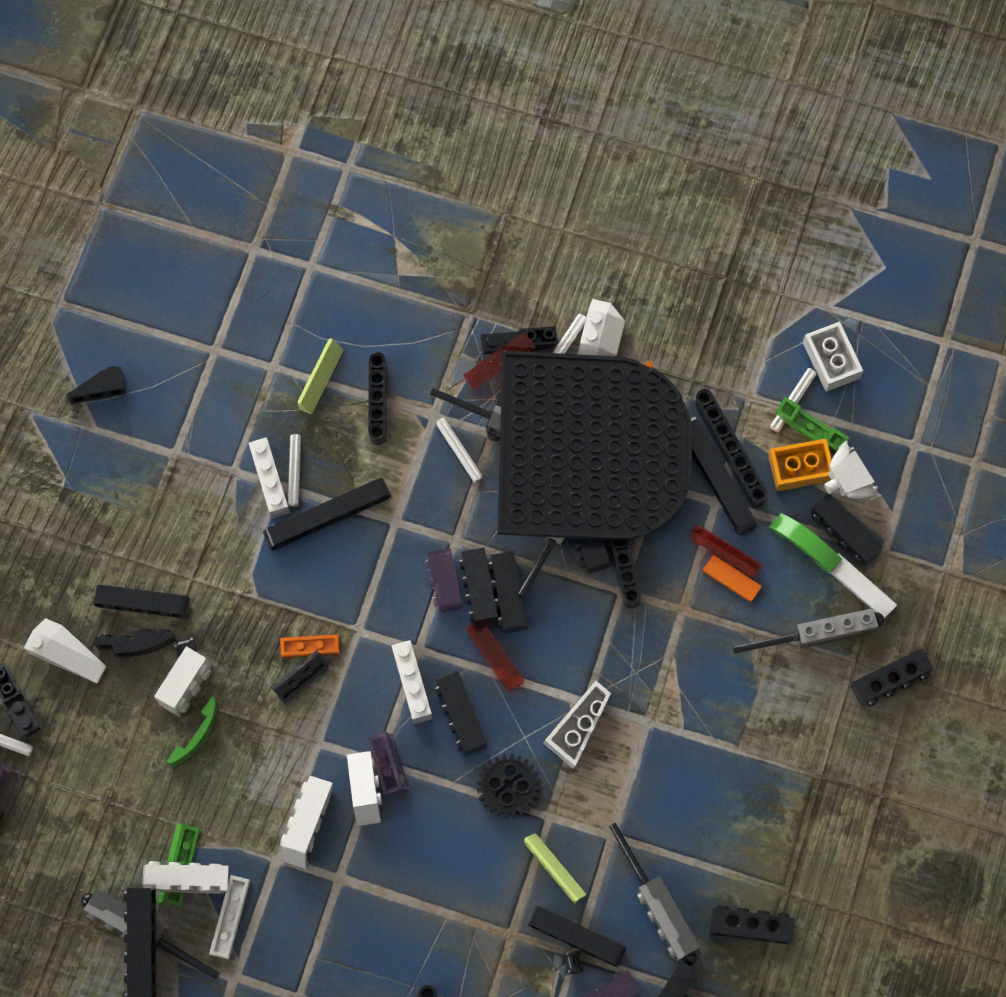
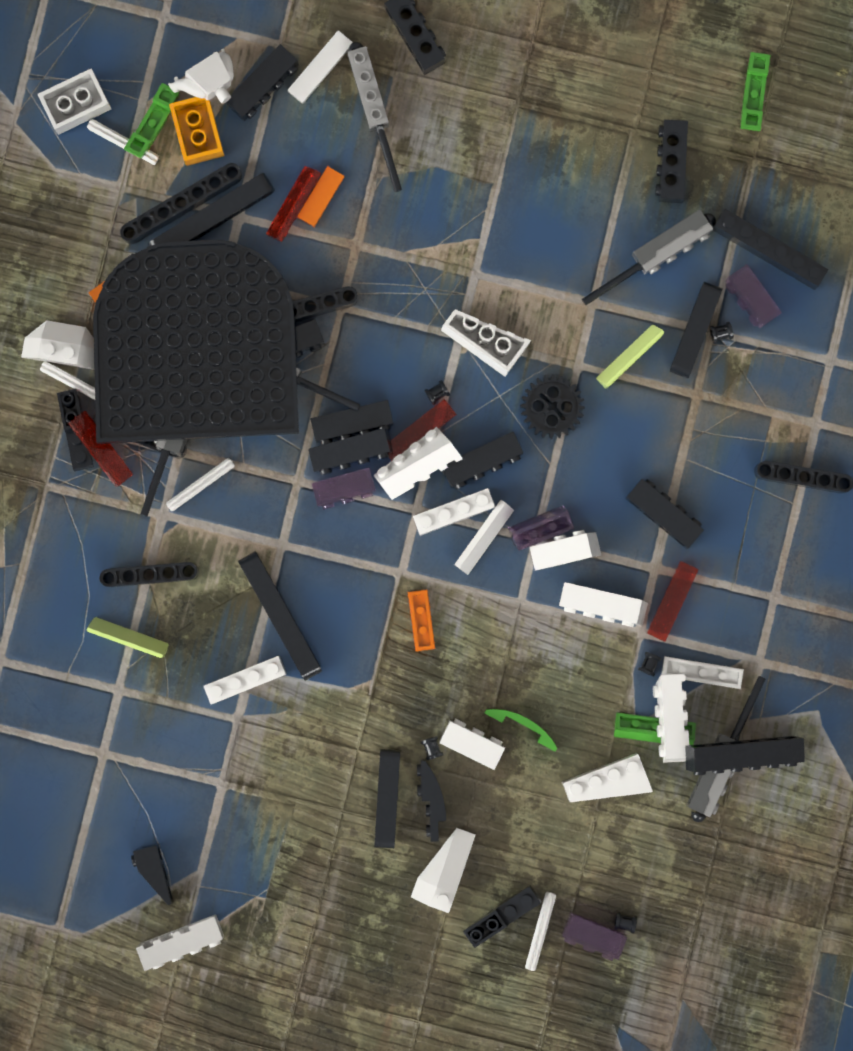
camera: 95 degrees left, 15 degrees up
(31, 403) = (179, 942): none -> white wedge
(132, 817) = (611, 780): none -> white wedge
(243, 863) = (649, 664): none -> black bush
(294, 470) = (233, 655): white axle -> none
(300, 676) = (455, 626): black plate -> none
(304, 891) = (672, 601): none -> clear red plate
(384, 710) = (484, 537): none -> white tile
(392, 889) = (664, 513): none -> black brick
(462, 649) = (417, 463): none -> white wedge
(531, 675) = (437, 392): none -> black bush
(807, 541) = (277, 123): bright green slope -> none

